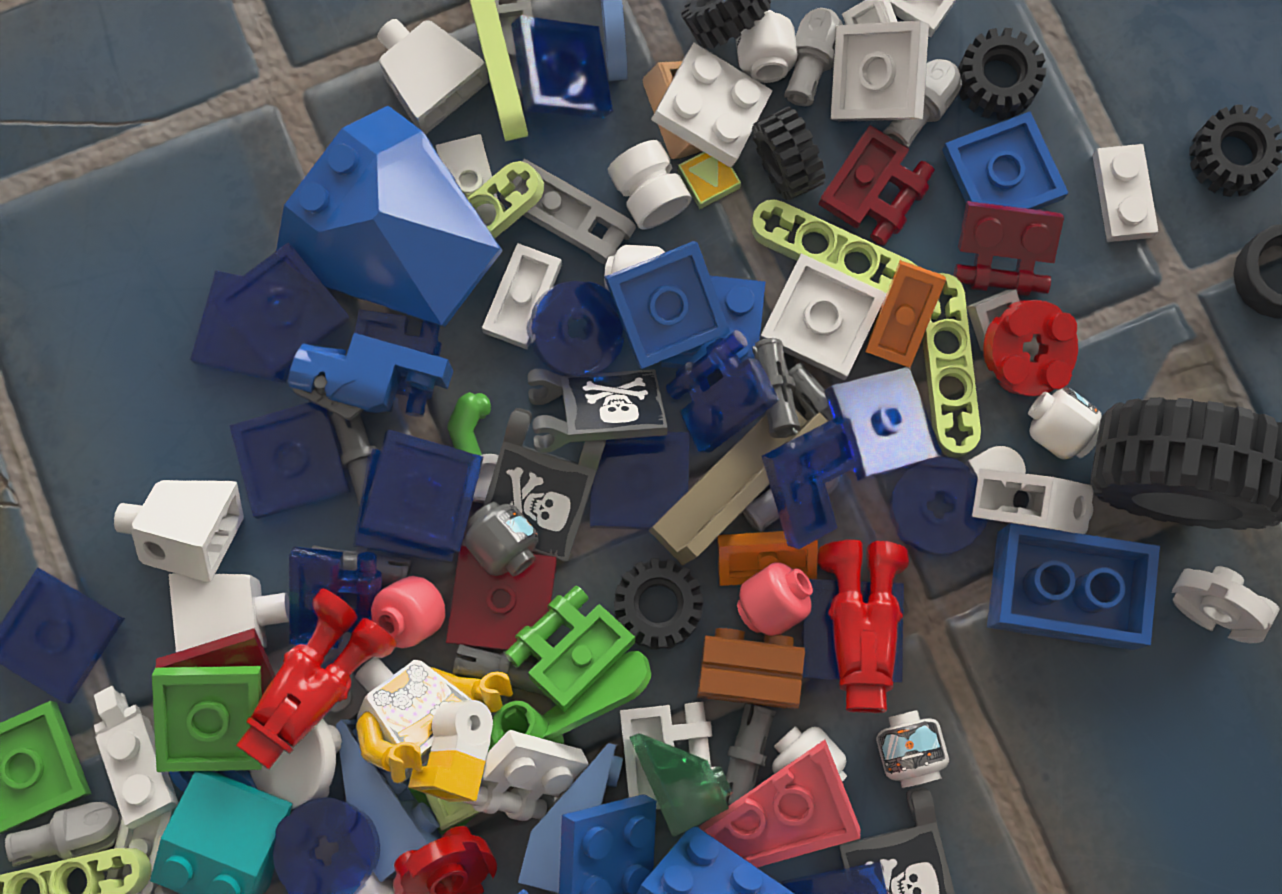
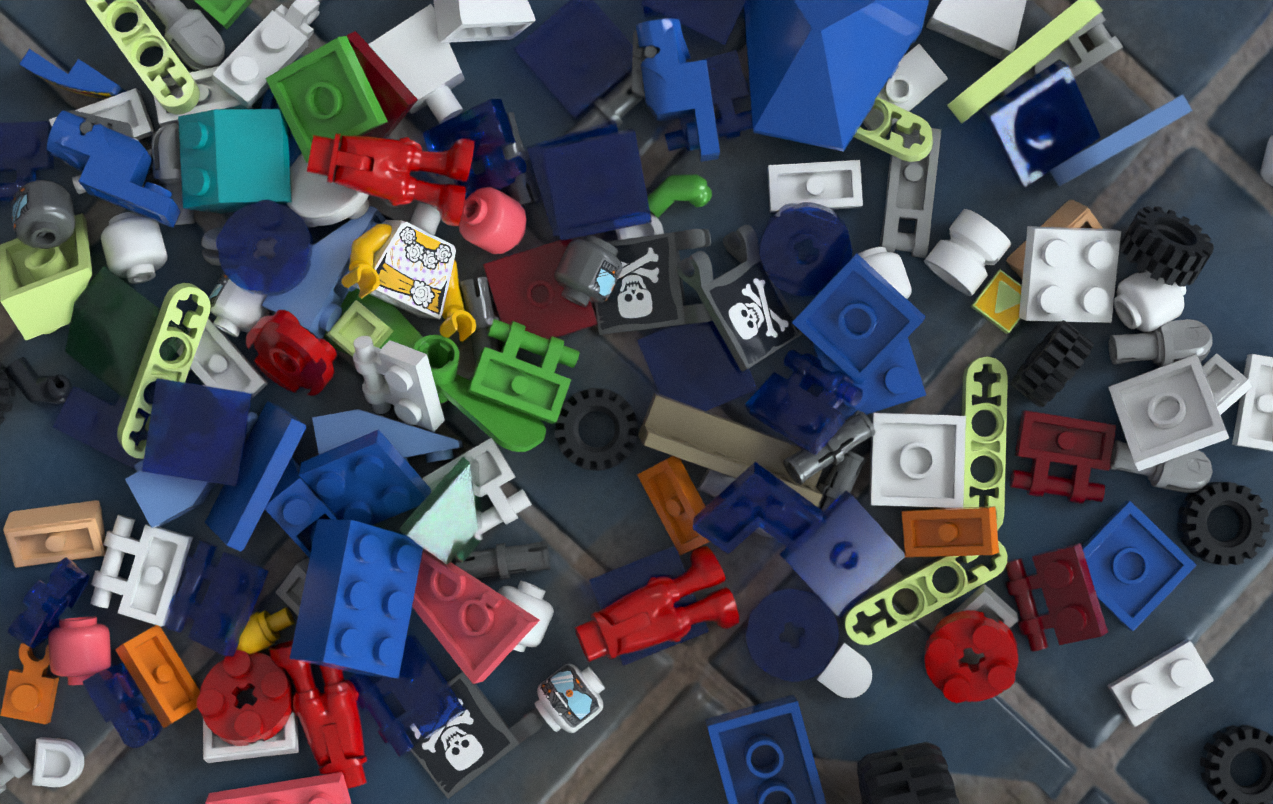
camera: 65 degrees right, 10 degrees up
(457, 752) = (391, 318): leg -> none
(751, 670) = (575, 534): dark orange brick -> none
(775, 599) = (643, 527): coral head -> none
(1051, 505) = (829, 735): white torso -> none
(1064, 423) = (914, 713): white head -> none

